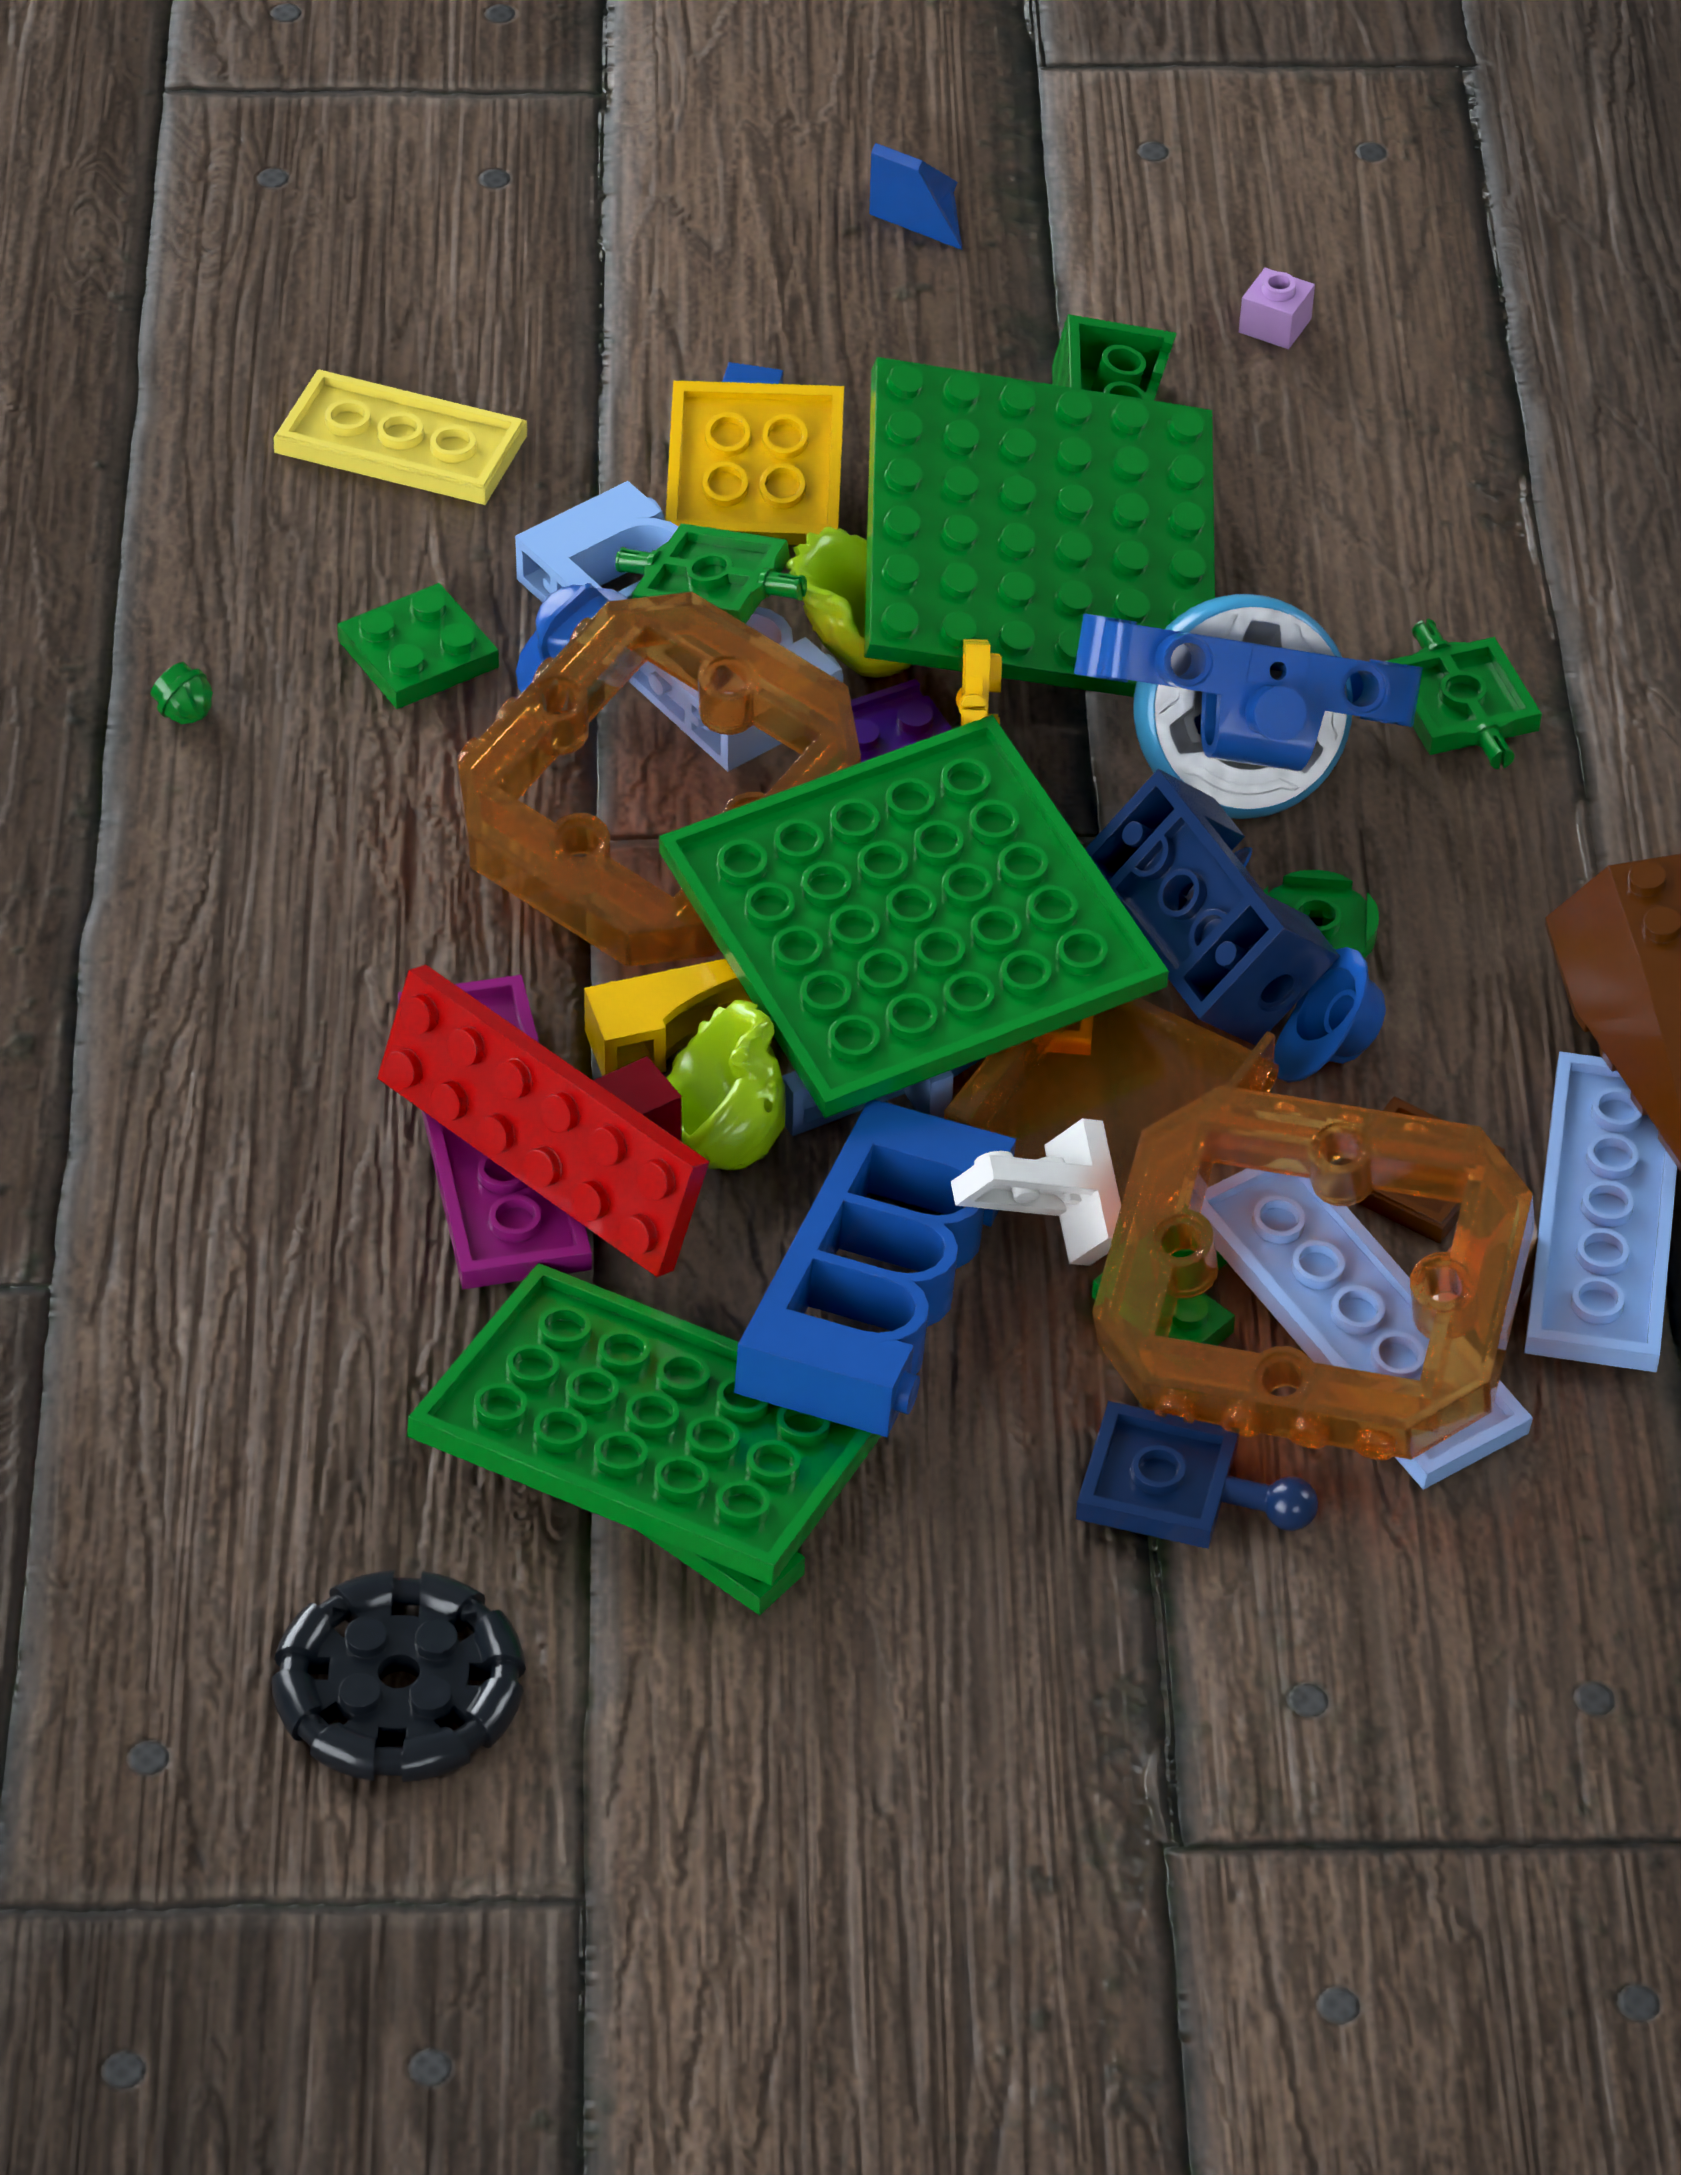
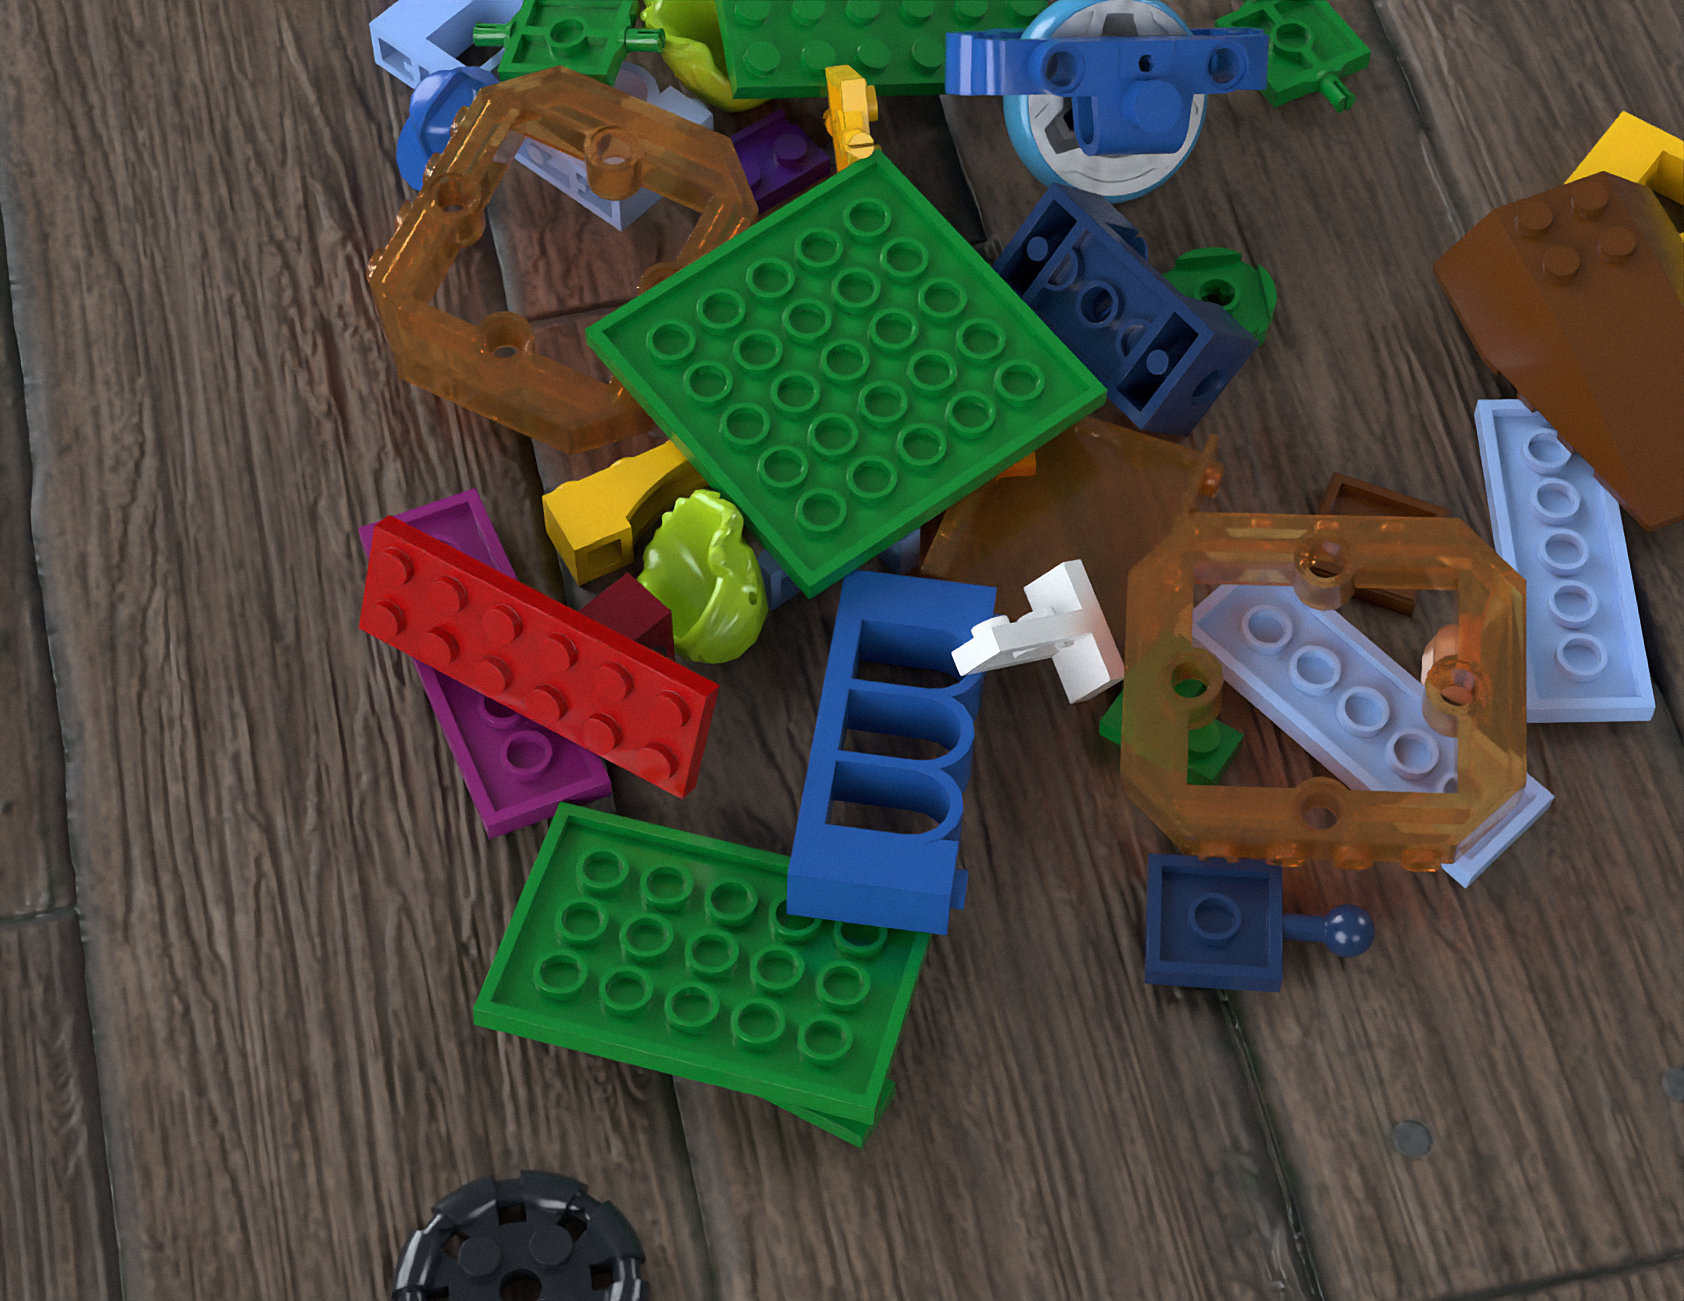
camera: 10 degrees left, 10 degrees up
(183, 694) = (79, 239): green plate -> none
(418, 645) = (296, 148): green plate -> none
(1331, 1020) = (1259, 404): blue piece -> none

